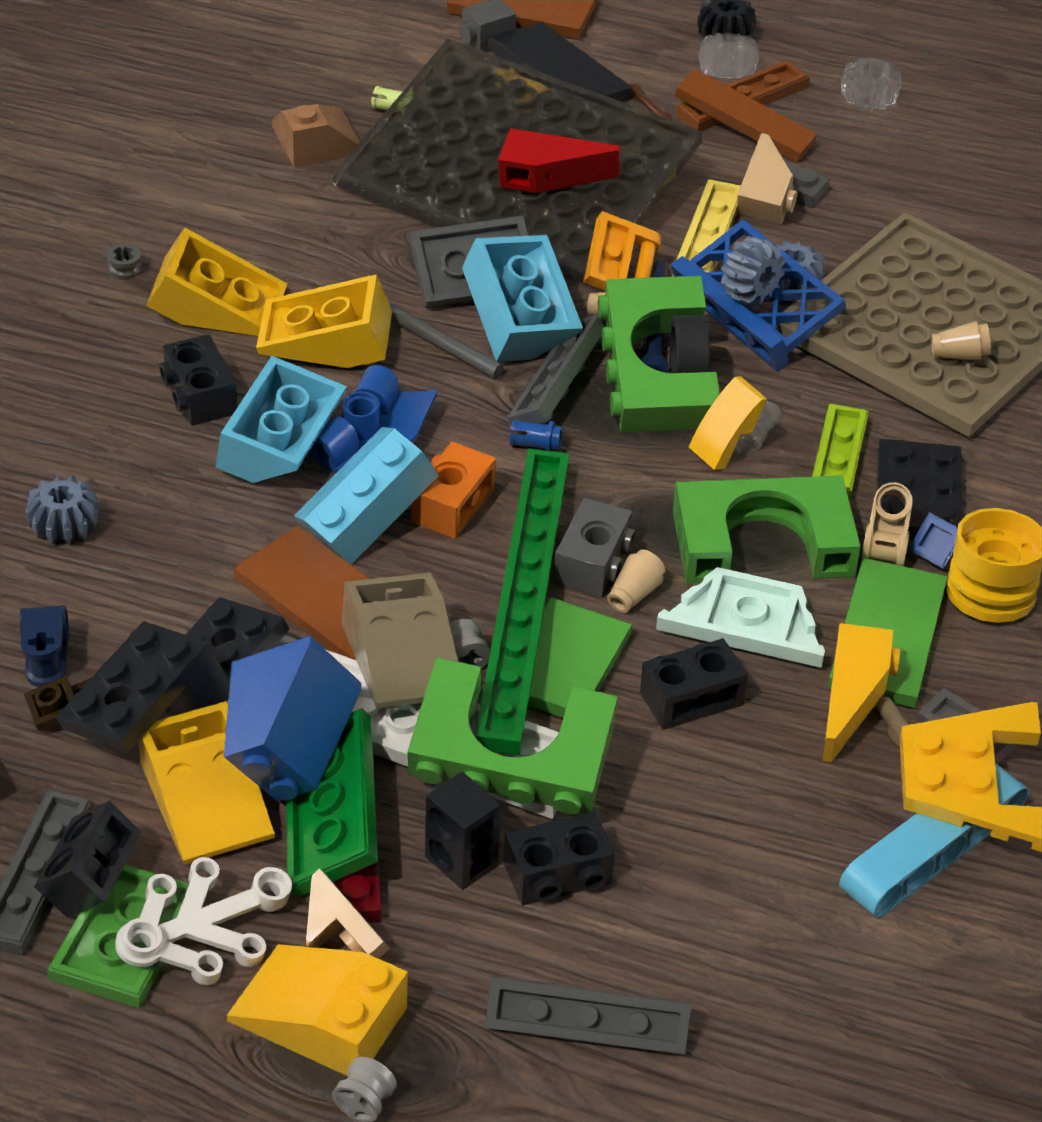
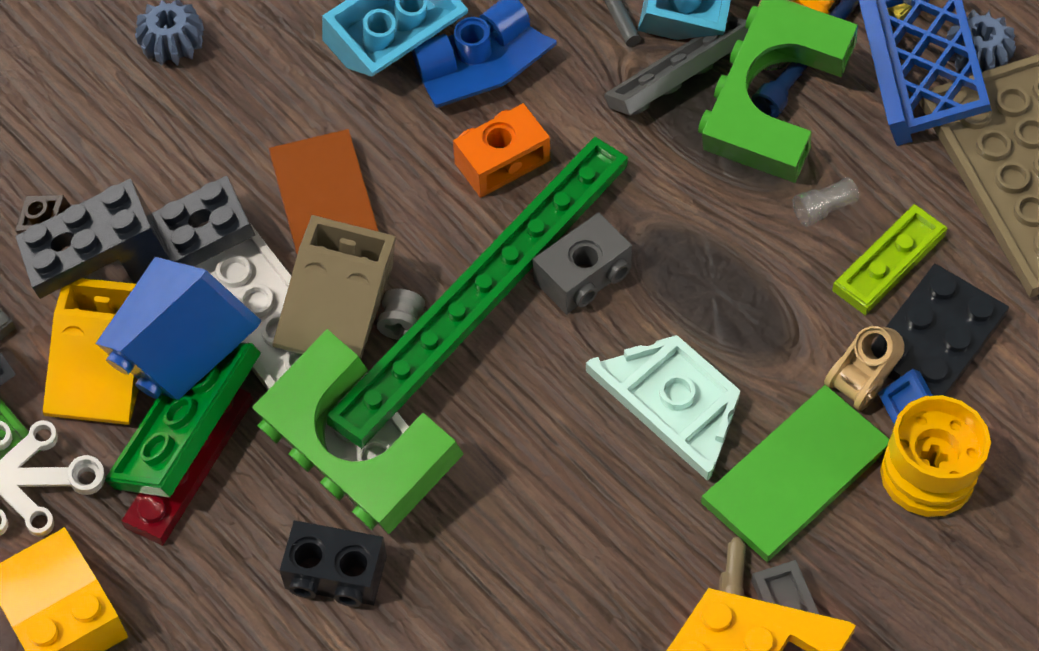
camera: 35 degrees right, 15 degrees up
(44, 643) = (72, 154): dark blue piece -> none
(331, 911) = (114, 525): tan slope -> none
(367, 494) = (411, 128): medium azure slope -> none
(462, 830) = (259, 499): black brick -> none
(539, 435) = (624, 128): blue pin -> none
(575, 651) = (491, 367): bright green tile -> none
(636, 580) = (597, 315): tan cone -> none
(689, 344) = (807, 94): black tyre -> none
(693, 683) = (570, 455): black brick -> none
(730, 416) = (789, 186): yellow slope -> none
(752, 271) = (913, 38): sand blue gear -> none
(808, 505) = (715, 271): bright green arch -> none
(858, 682) = (712, 516): yellow slope -> none

